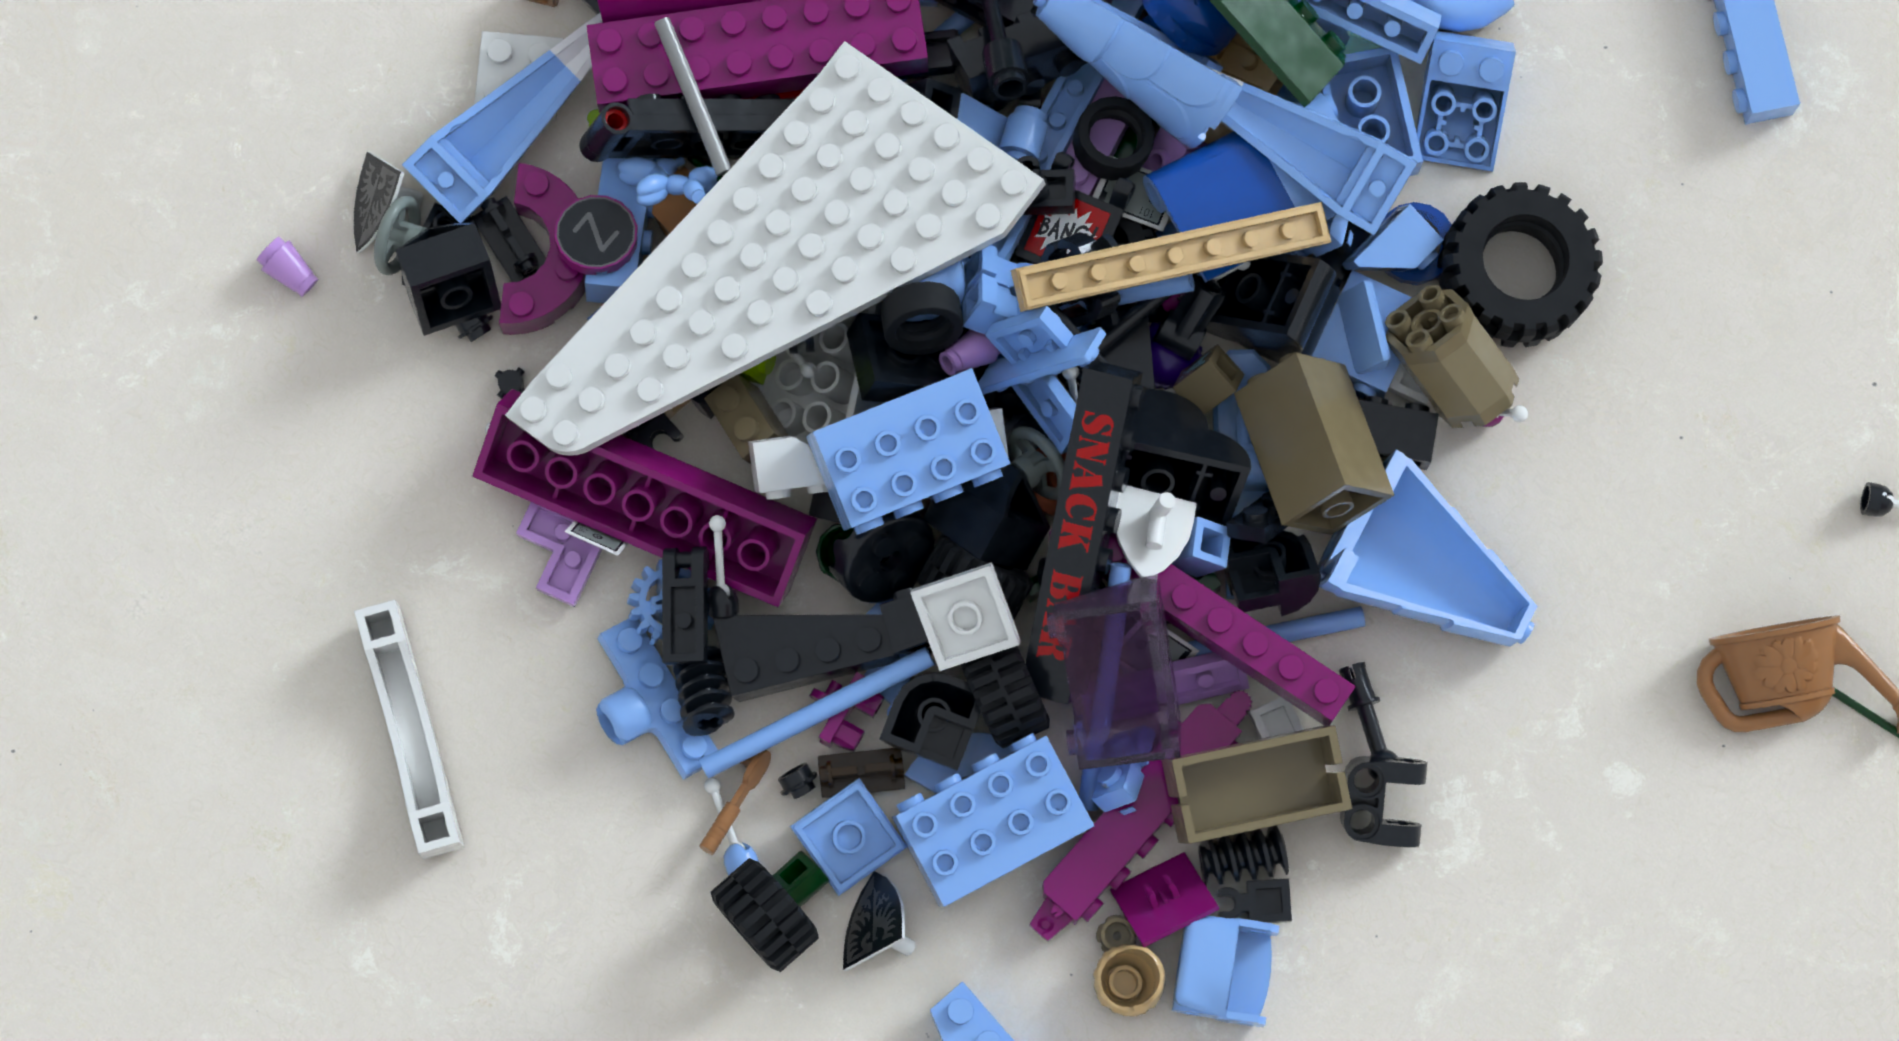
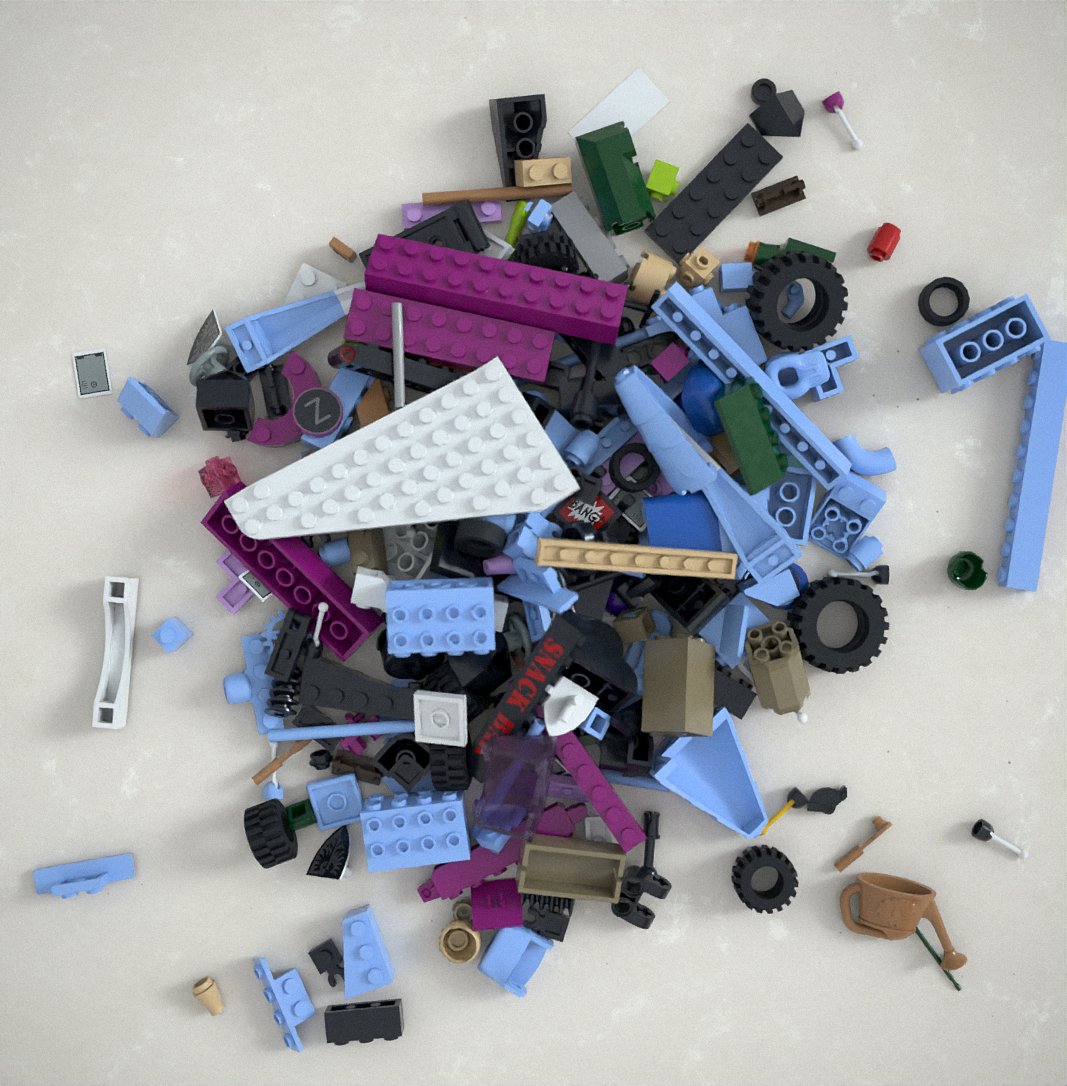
camera: 25 degrees right, 10 degrees up
(210, 321) = (92, 373): none -> sticker
(287, 266) = (144, 359): lavender cone -> none
(320, 335) = (146, 407): none -> light blue slope
(471, 398) = (218, 475): none -> clear pink brick
(489, 671) = (172, 634): none -> light blue brick
(510, 380) = (246, 473): black piece -> none
(657, 179) = (362, 396): light blue piece -> none
(703, 446) = (335, 552): none -> light blue brick
(755, 716) = (311, 716): none -> black plate
(1518, 147) = (864, 553): none -> light blue brick
(1554, 172) = (878, 574): none -> hinge
(1566, 562) = (795, 799): none -> hinge
(1588, 670) = (770, 898): none -> black tyre
(1615, 544) = (826, 799): none -> black piece
(1683, 114) = (966, 570): none -> dark green hair
(1719, 554) = (856, 852): none -> medium nougat piece

